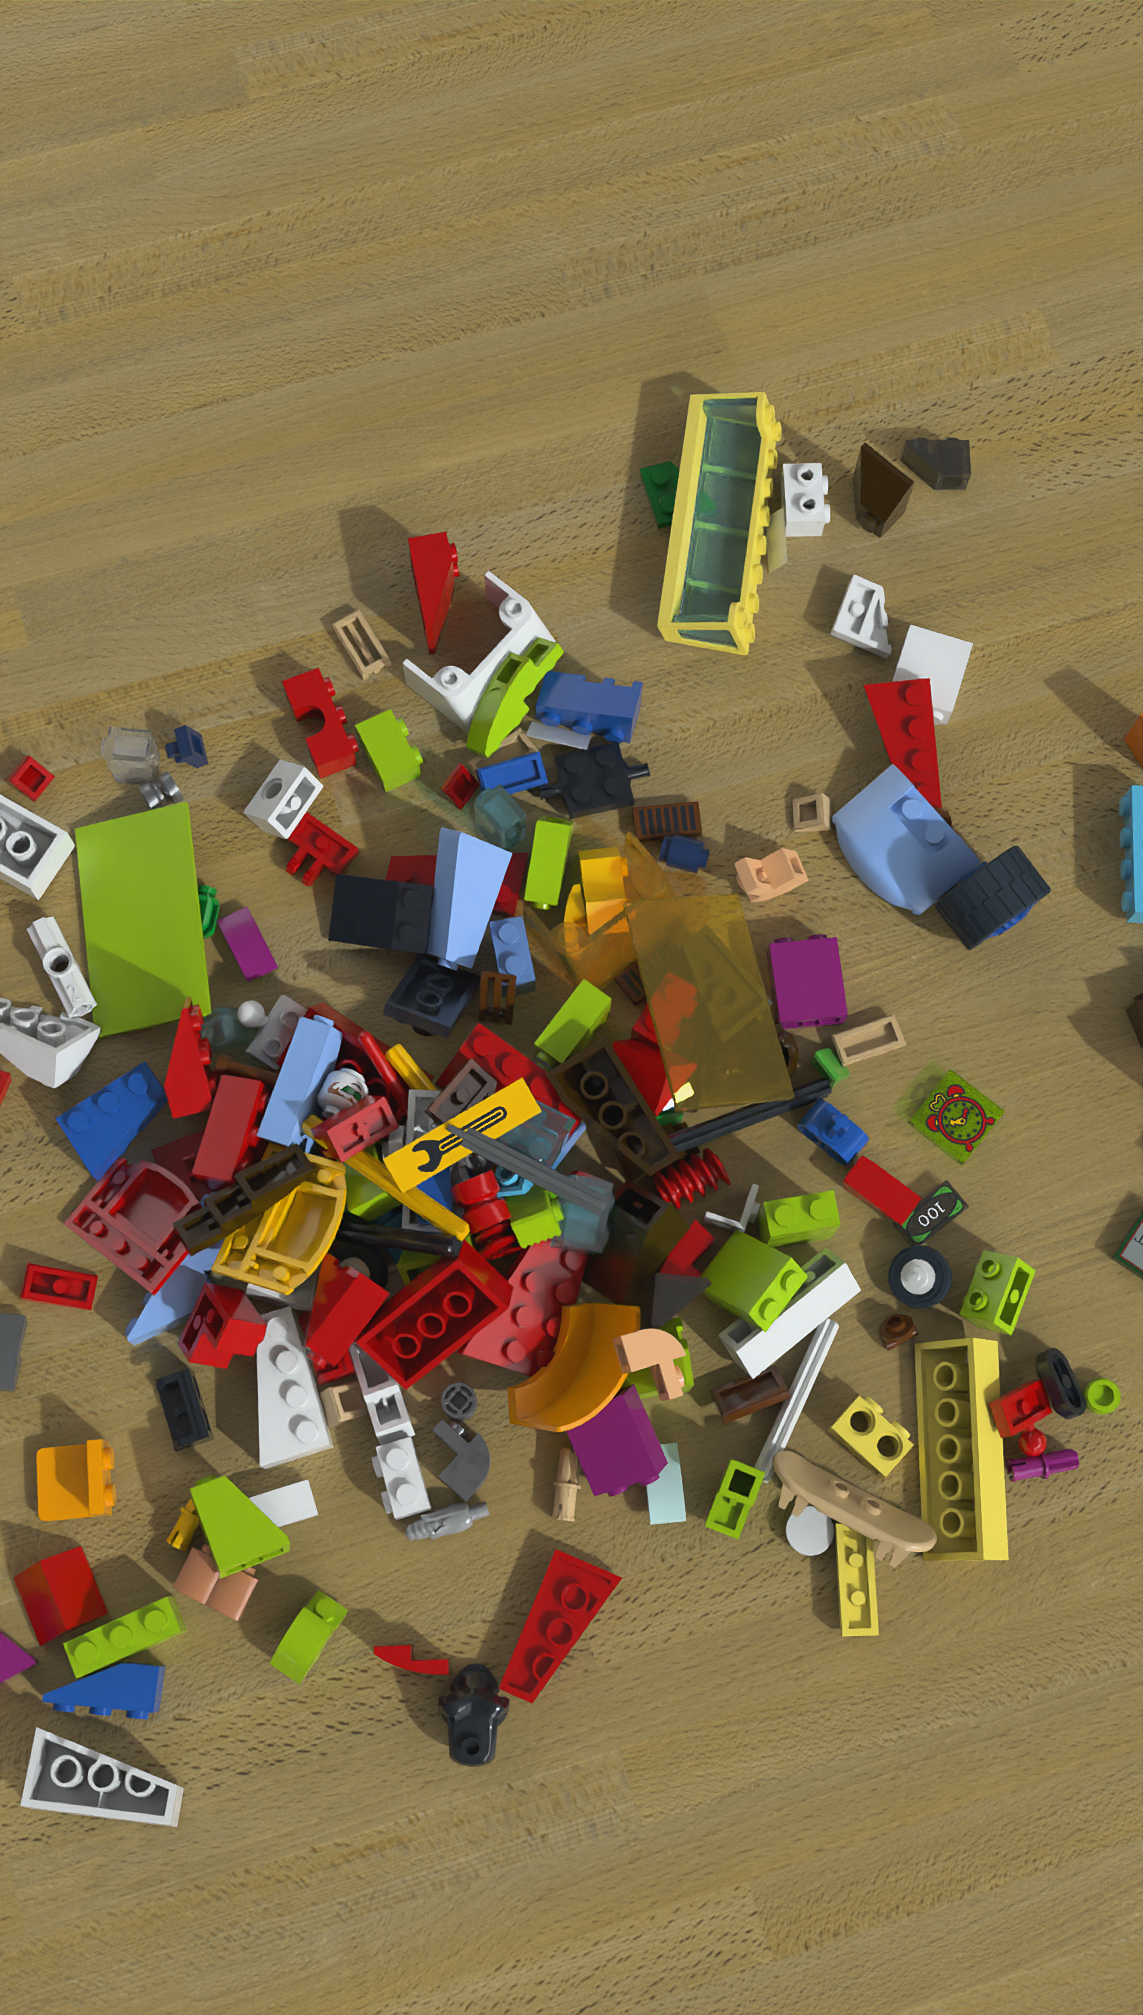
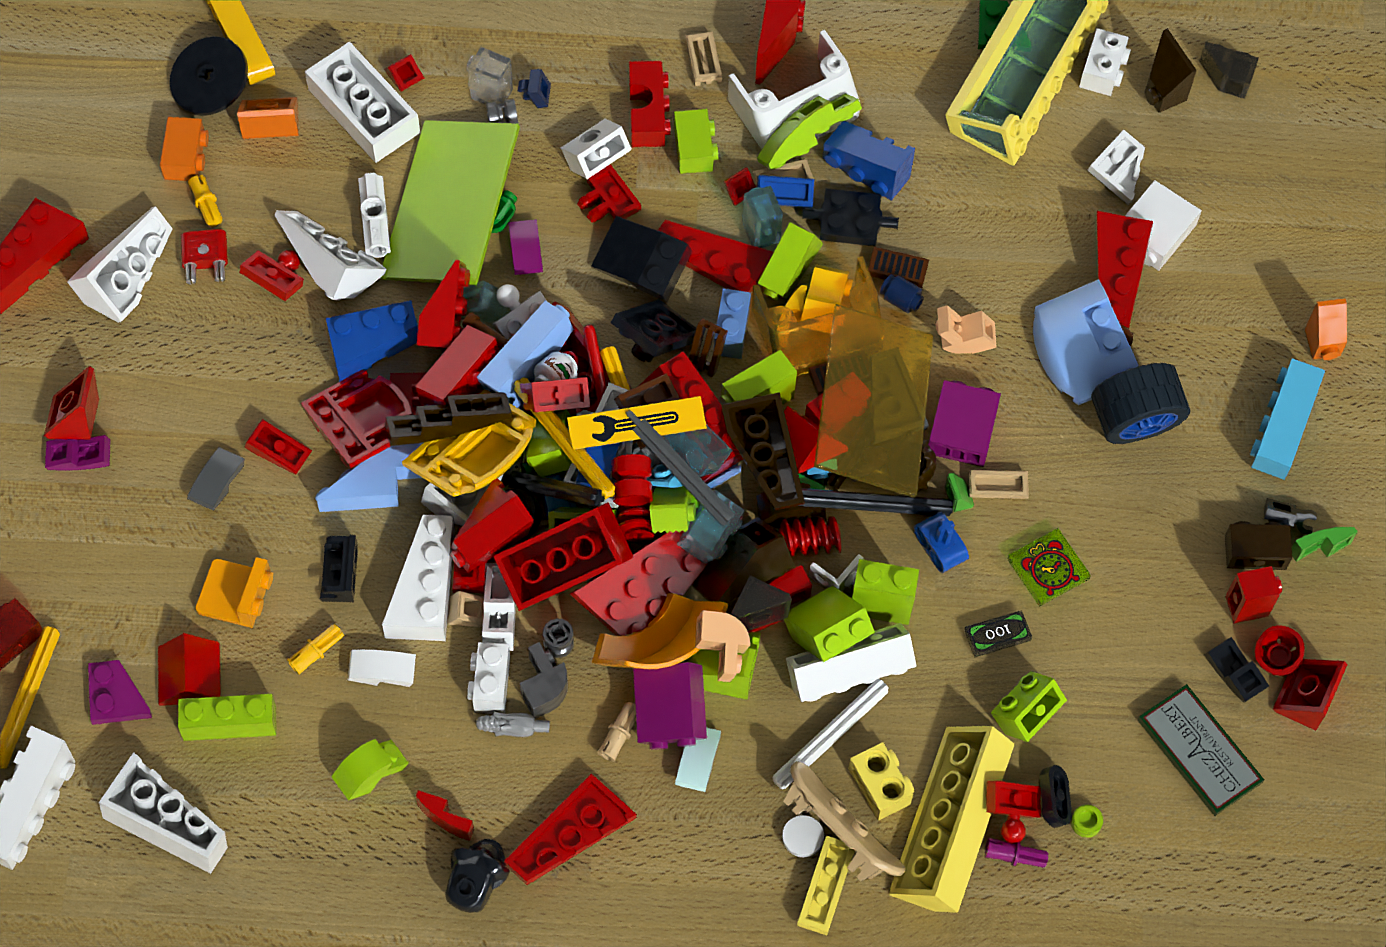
camera: 20 degrees right, 10 degrees down
(121, 1687) = (206, 752): blue slope -> none
(202, 1583) = (314, 704): nougat brick -> none
(221, 1326) = (392, 511): red brick -> none
(234, 1526) = (345, 662): lime slope -> none
(463, 896) = (710, 260): light blue slope -> none
(558, 735) = (835, 174): white sticker -> none
(734, 1498) = (755, 782): lime brick -> none
(749, 1395) = (794, 715): reddish brown tile -> none
(776, 541) = (1070, 86): sticker -> none
(812, 813) = (1020, 300): tan slope -> none
(880, 1190) = (962, 598): red slope -> none
(897, 1330) = (935, 711): reddish brown plate -> none
(919, 1276) = (969, 673): black wheel -> none

